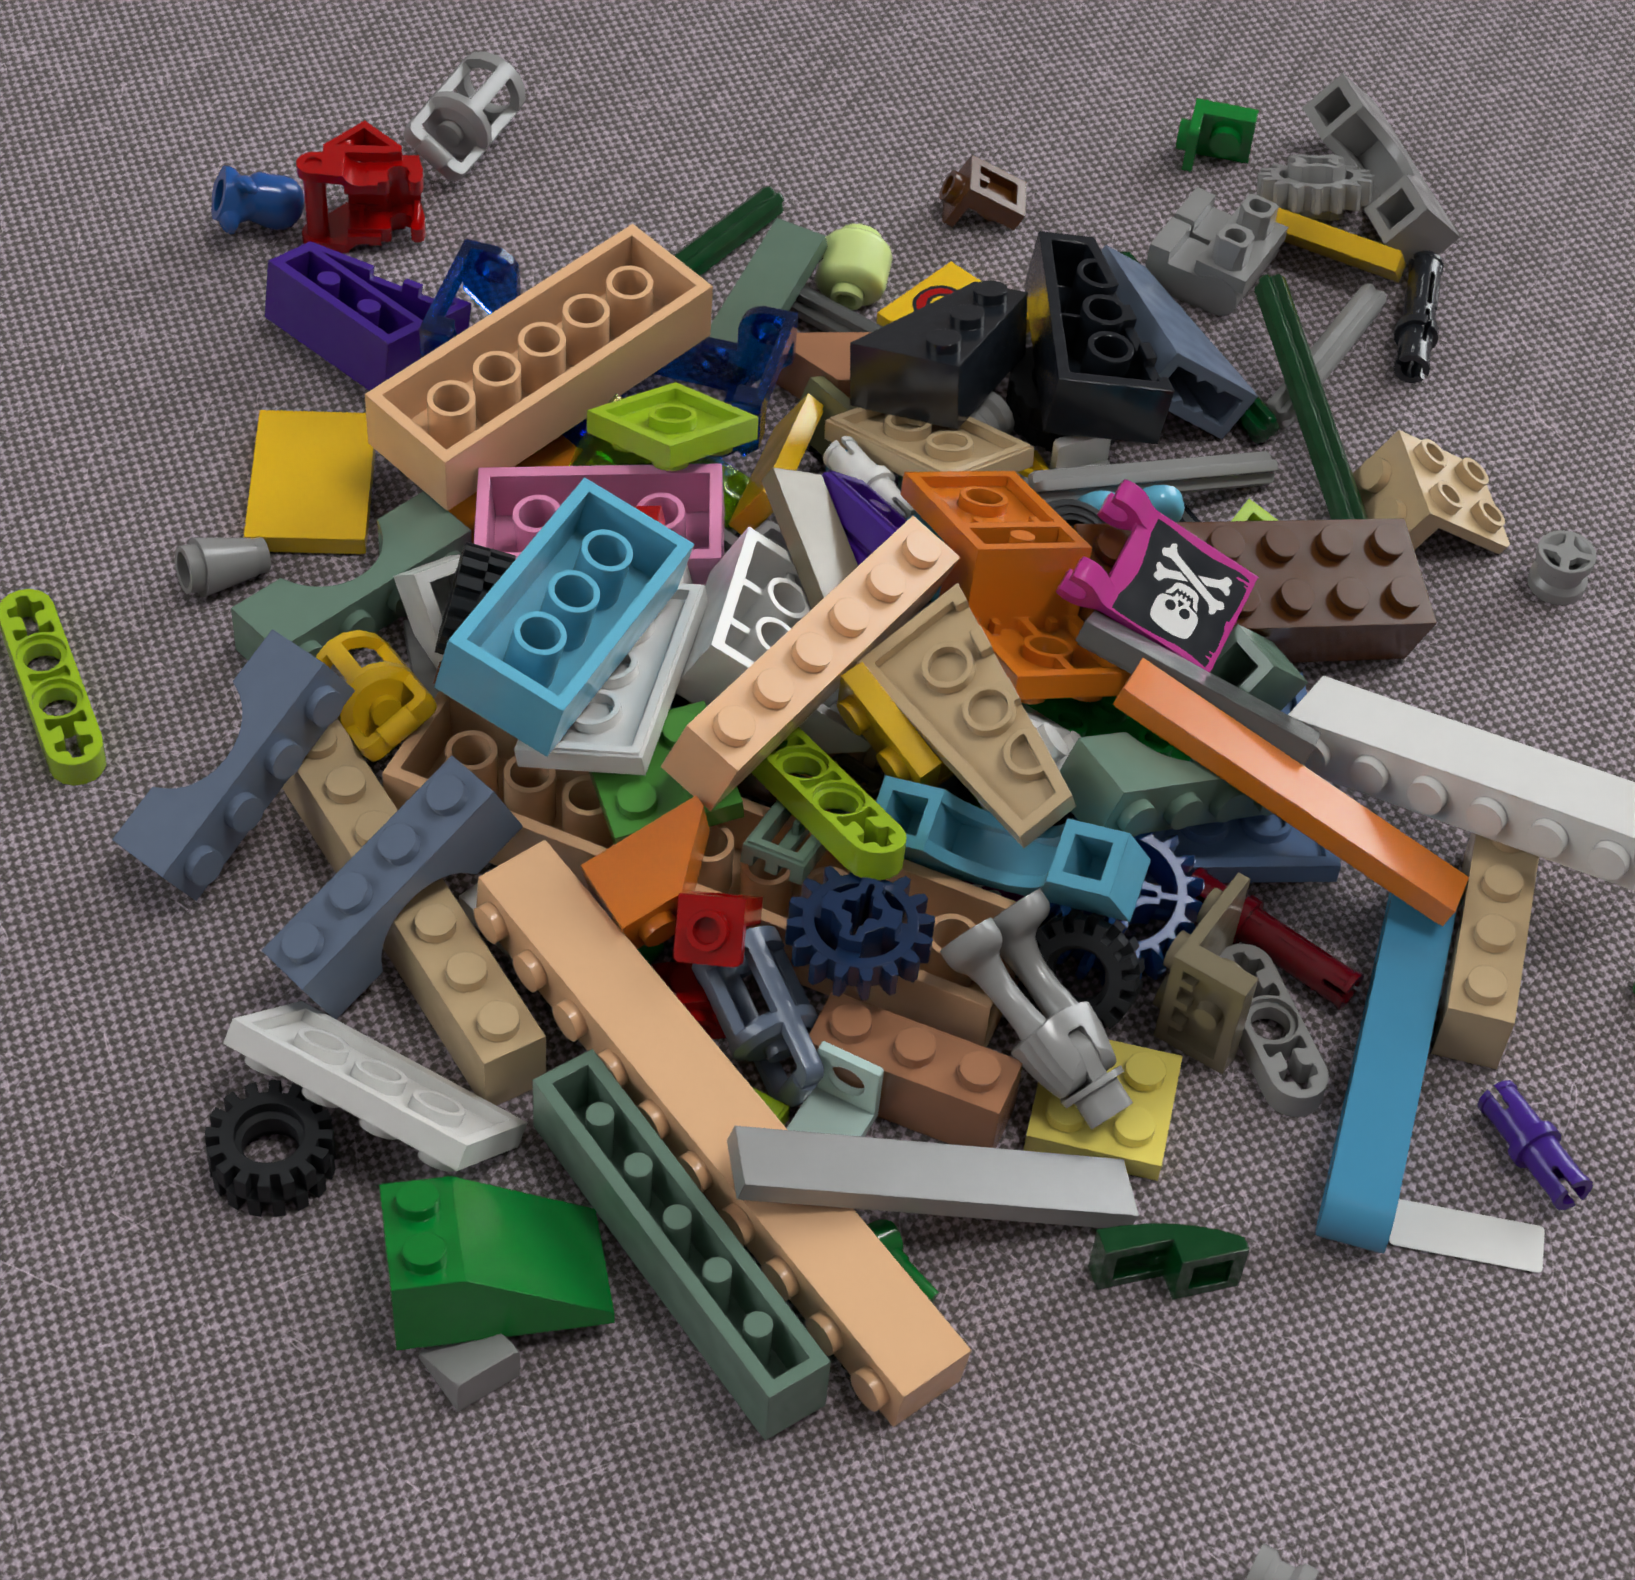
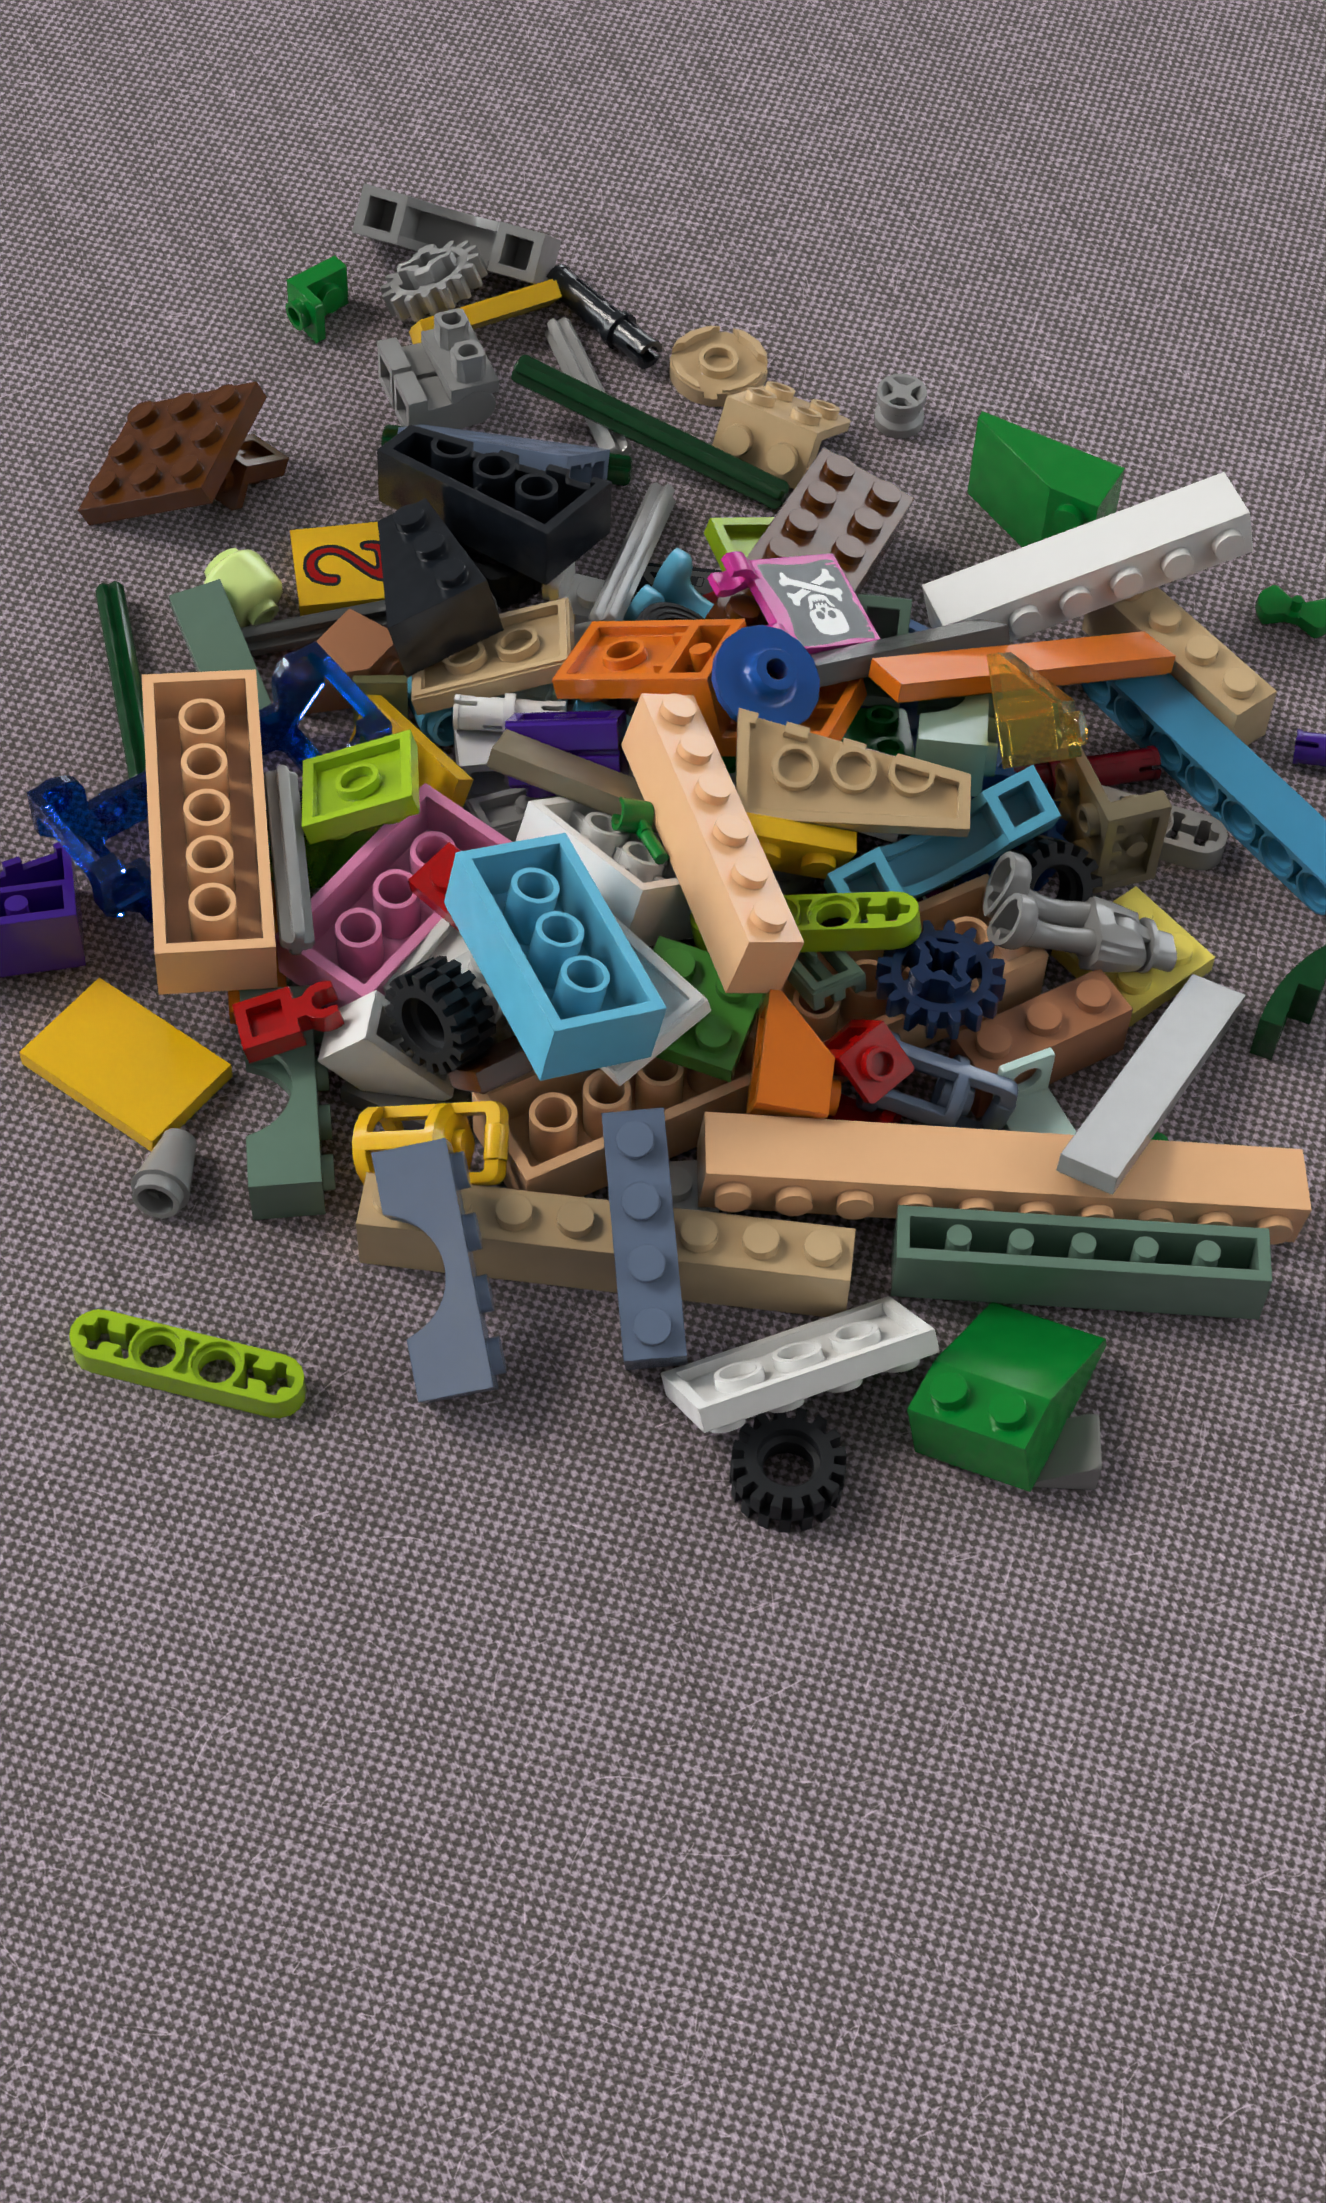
camera: 50 degrees left, 5 degrees up
(397, 520) = (278, 1020): none -> red plate
(549, 428) = (289, 860): none -> light grey axle
(798, 604) = (638, 820): none -> green hand
(937, 141) = (172, 453): none -> reddish brown plate
(1021, 622) = (743, 679): none -> blue piece
(1215, 811) = (1032, 715): none -> clear yellow slope
(1464, 420) = (716, 364): none -> tan tile
(1567, 699) = (1037, 483): none -> green slope

